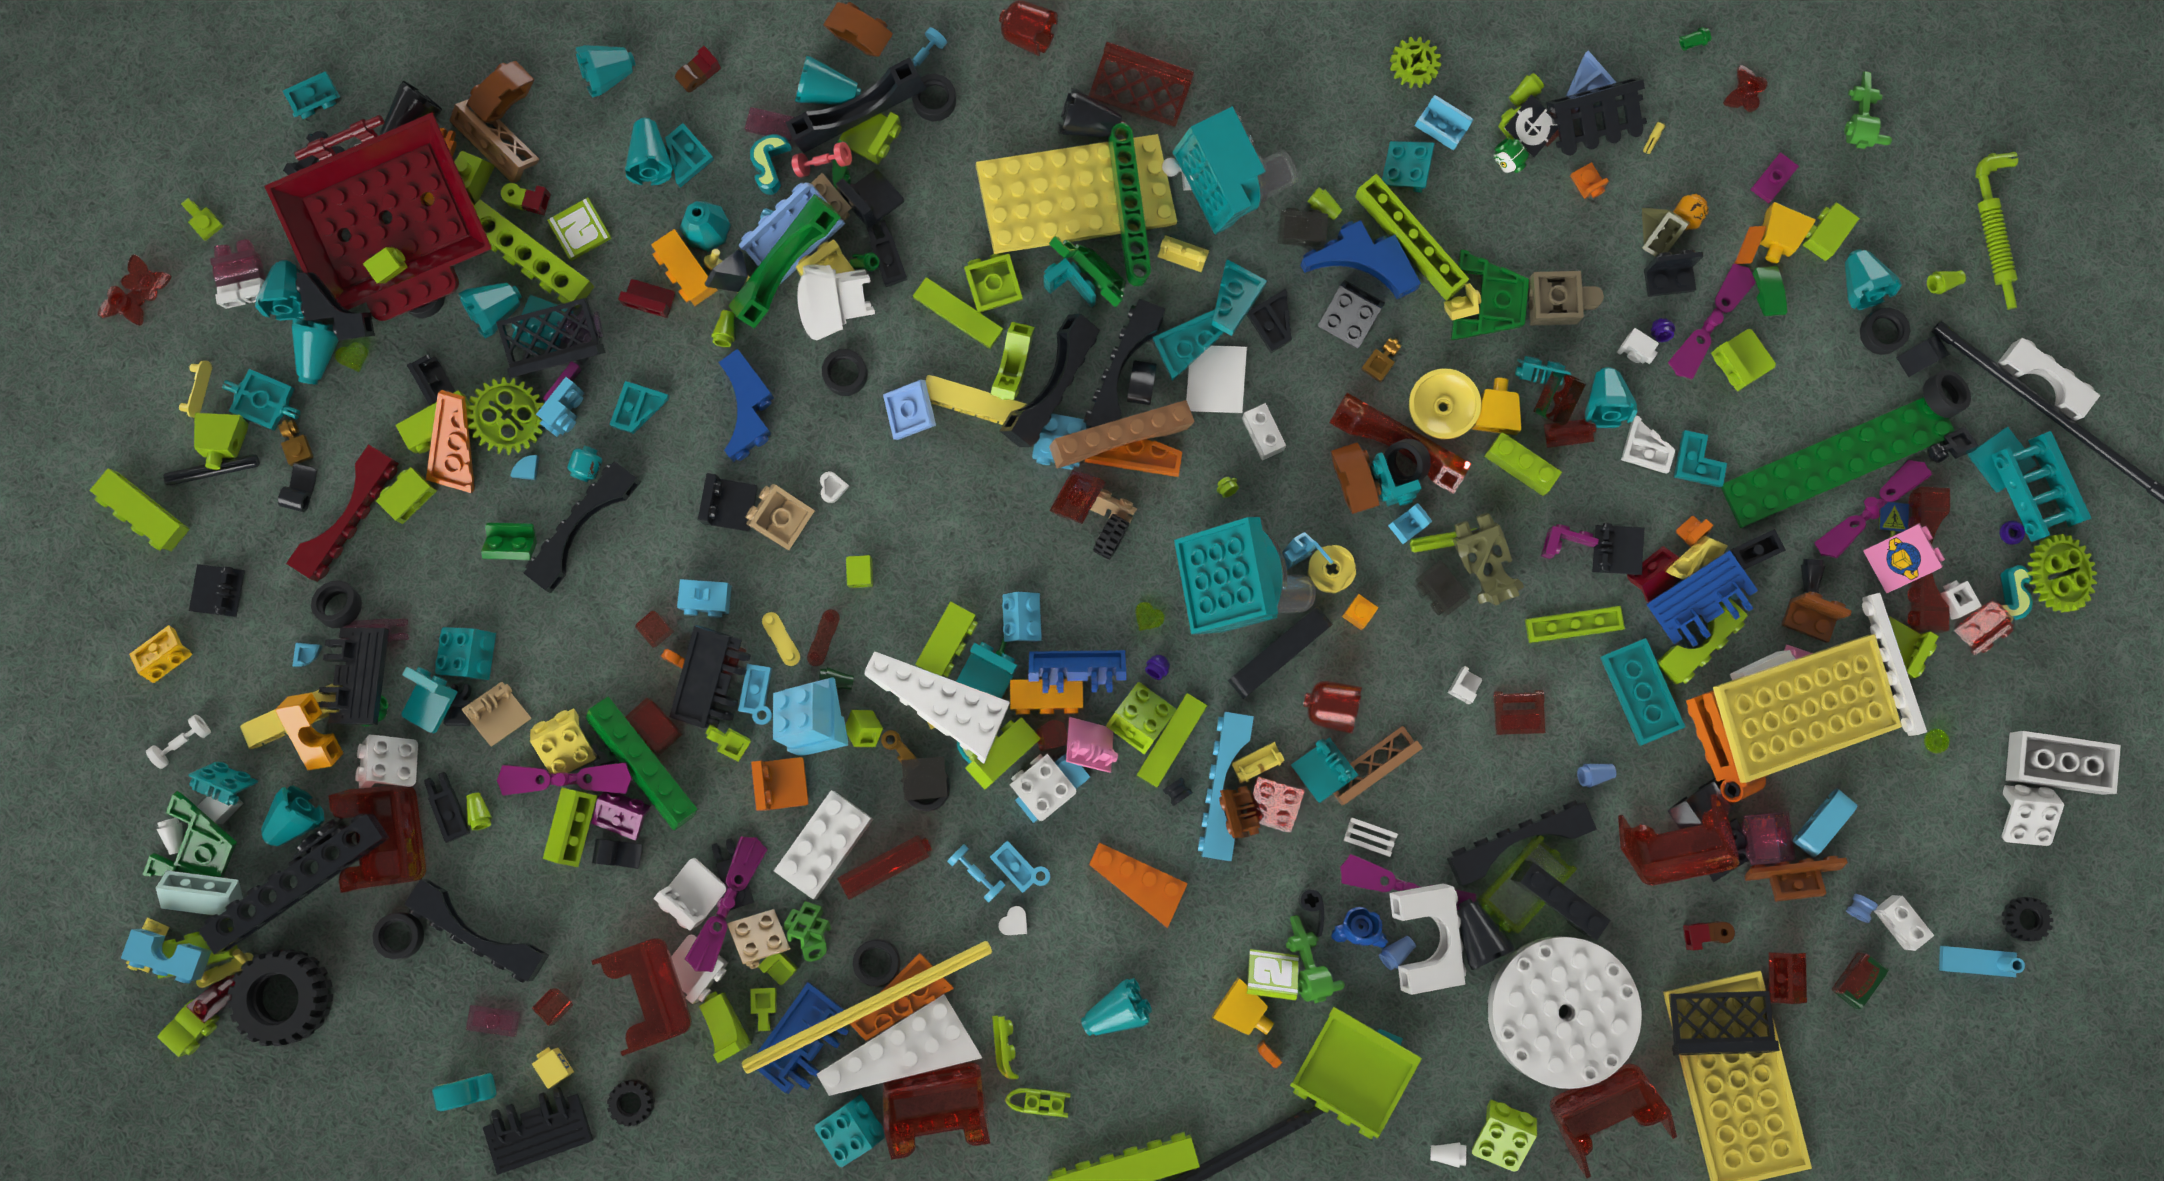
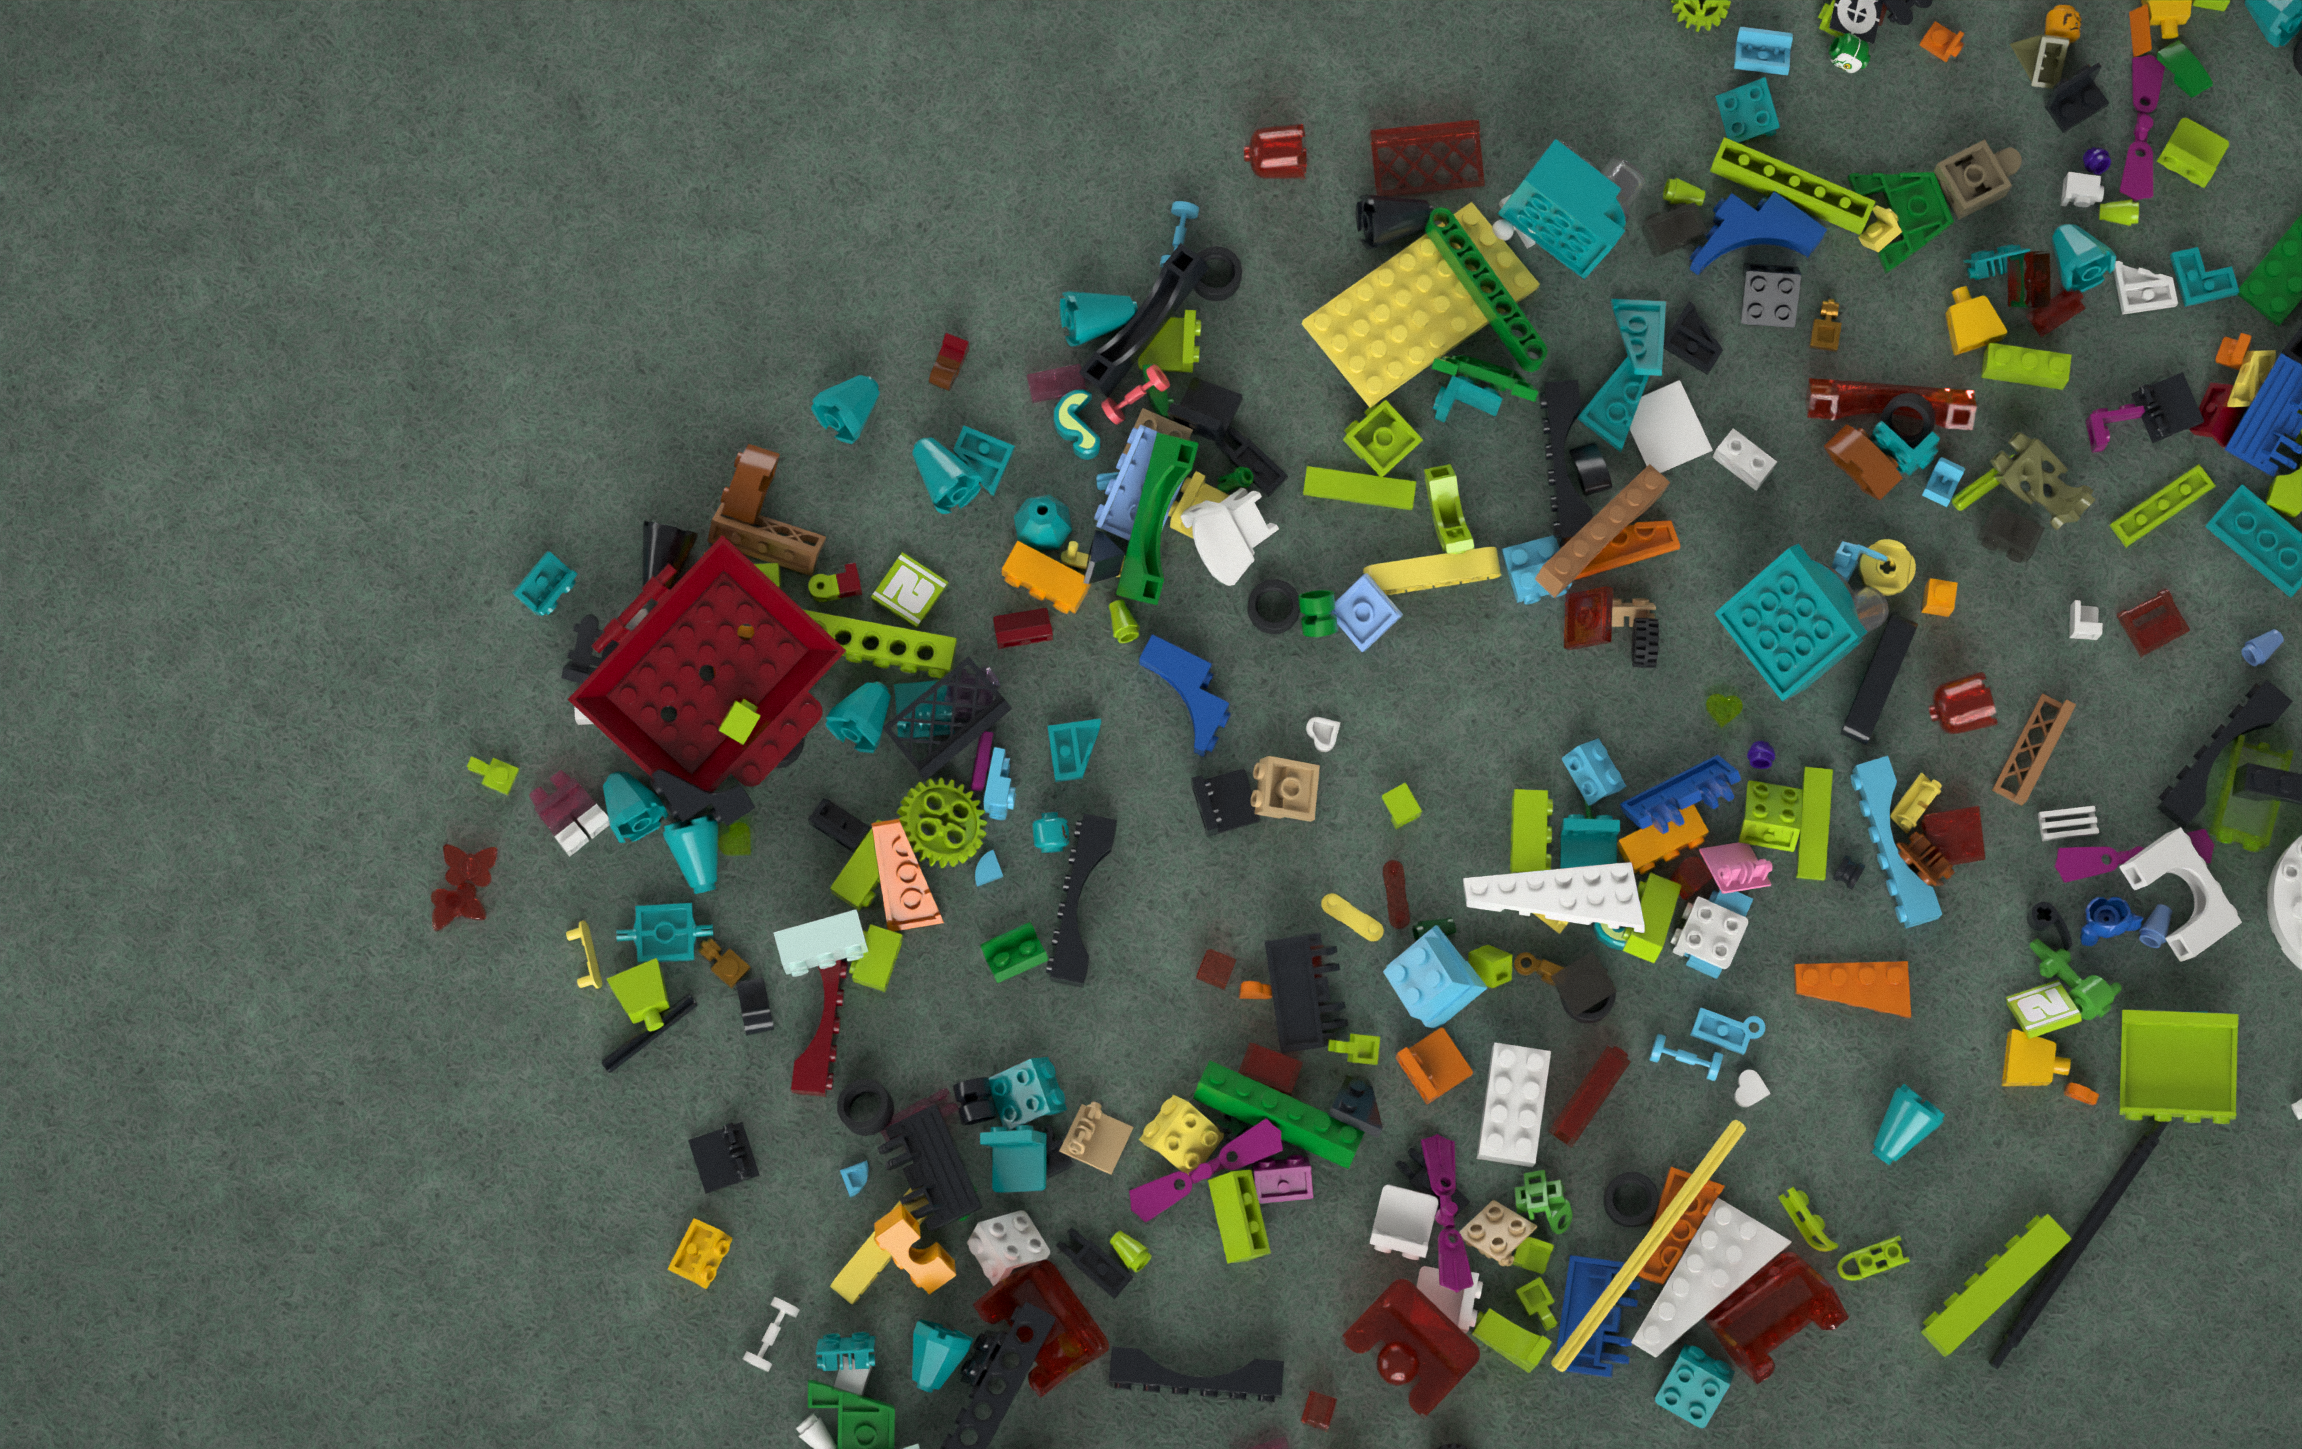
camera: 30 degrees left, 5 degrees down
(138, 509) = (596, 1112): lime brick -> none
(357, 463) = (821, 943): none -> light aqua brick
(379, 939) = (1096, 1409): black tyre -> none
(420, 640) = (974, 1111): none -> black wheel
(617, 853) = (1301, 1222): black panel -> none
(631, 1000) = (1397, 1363): none -> clear red hair
(701, 787) = (1357, 1107): none -> black wing
(704, 597) = (1252, 911): medium azure brick -> none
(755, 692) = (1357, 984): medium azure hinge -> none
(858, 28) = (1099, 238): dark orange brick -> none
(872, 393) = (1318, 613): none -> green wheel
(1073, 342) = (1501, 461): black arch -> none
(1183, 253) = (1563, 314): light yellow hinge -> none
(1227, 487) = (1735, 534): lime plate -> none
(1324, 770) = (1986, 777): teal hinge -> none
(1452, 390) = (1920, 325): light yellow dish -> none
(1481, 935) = (2233, 865): black cone -> none
(1660, 379) = (2120, 212): none -> lime cone

